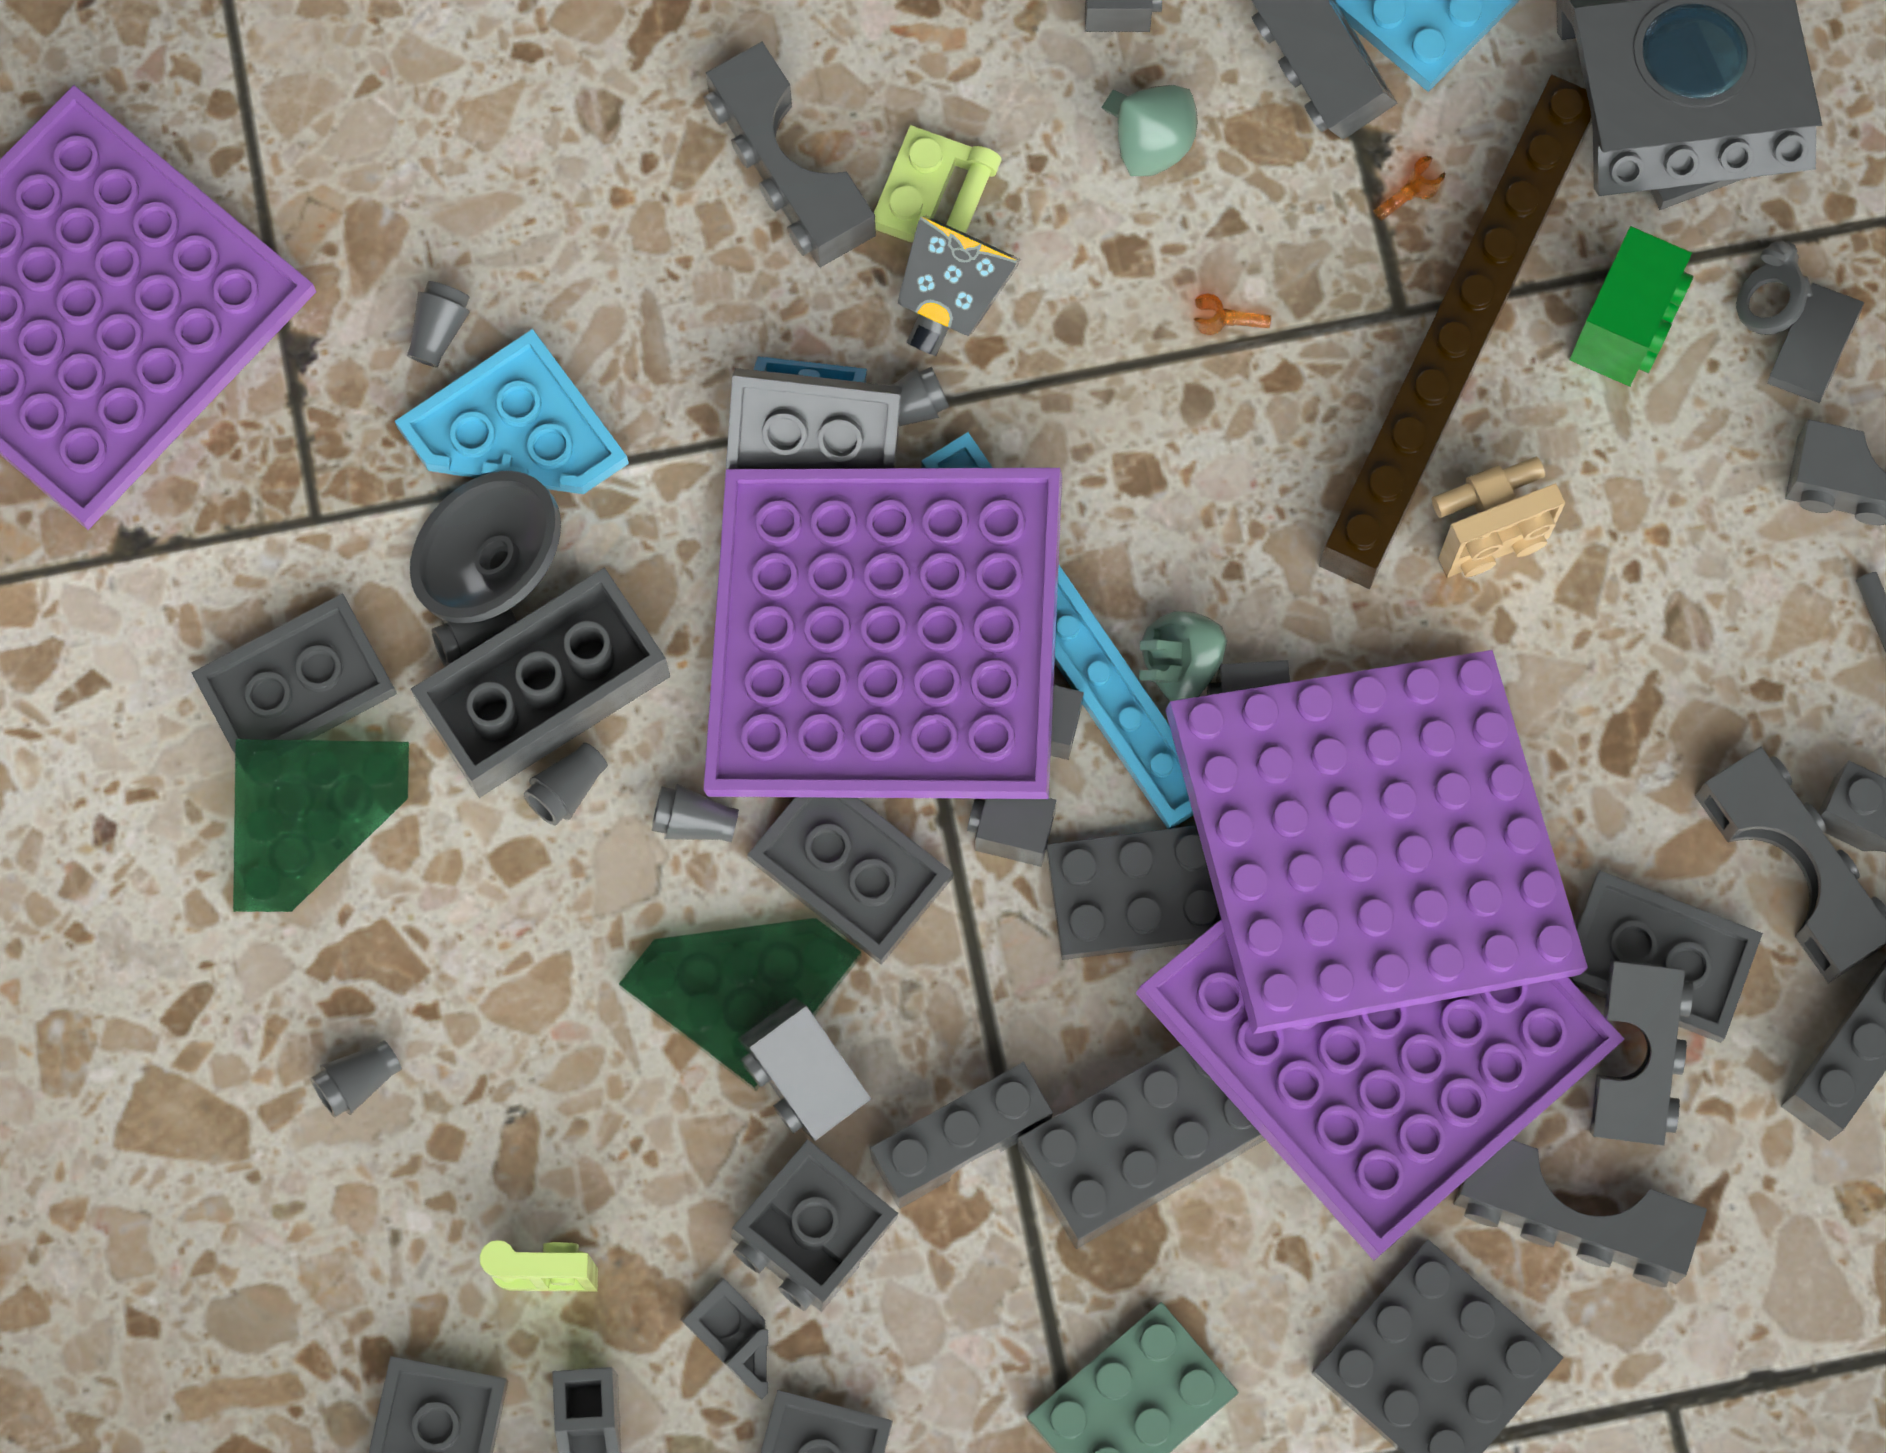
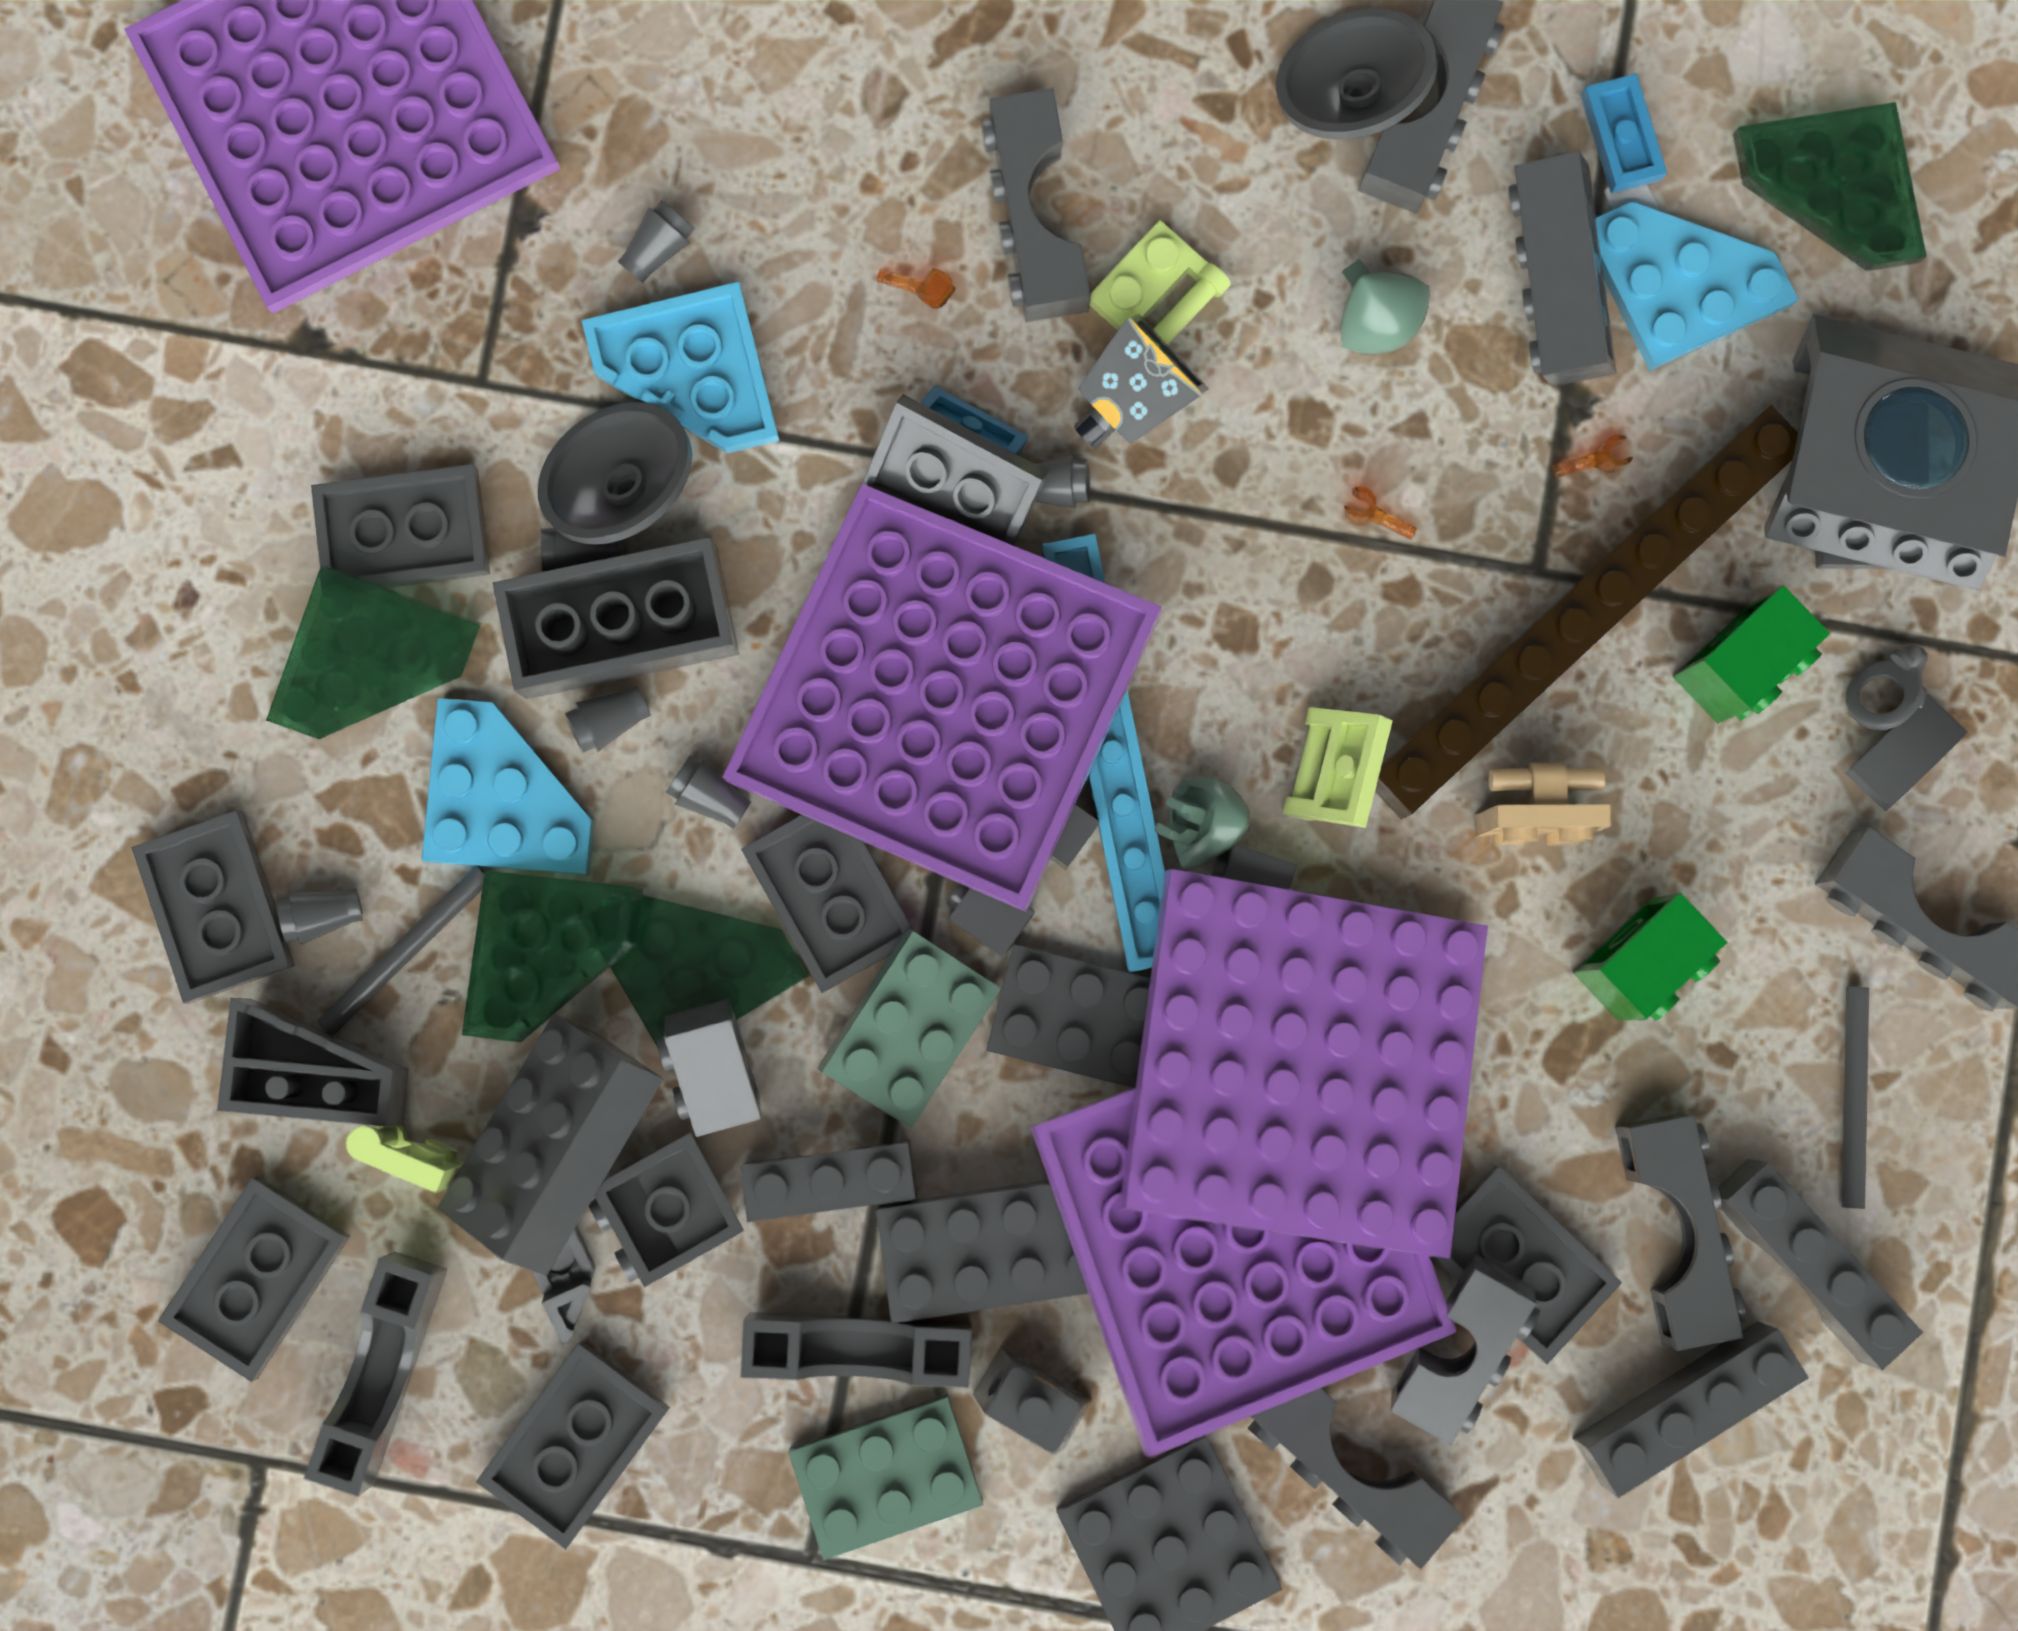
camera: 15 degrees right, 10 degrees up
(248, 1112) = (212, 907): none -> dark grey plate
(404, 1232) = (303, 1072): none -> dark grey wedge
(453, 1083) = (402, 951): none -> dark grey bar
(490, 903) = (498, 799): none -> medium azure plate
(590, 1020) = (541, 948): none -> clear green plate
(675, 1200) = (549, 1145): none -> dark grey brick
(720, 271) = (933, 291): none -> clear orange hand
(979, 961) = (909, 1028): none -> sand green plate
(1056, 1286) = (856, 1346): none -> dark grey arch
(1245, 1268) = (1030, 1401): none -> dark grey torso
(1298, 552) = (1339, 767): none -> yellowish green plate
(1654, 622) = (1651, 959): none -> green brick

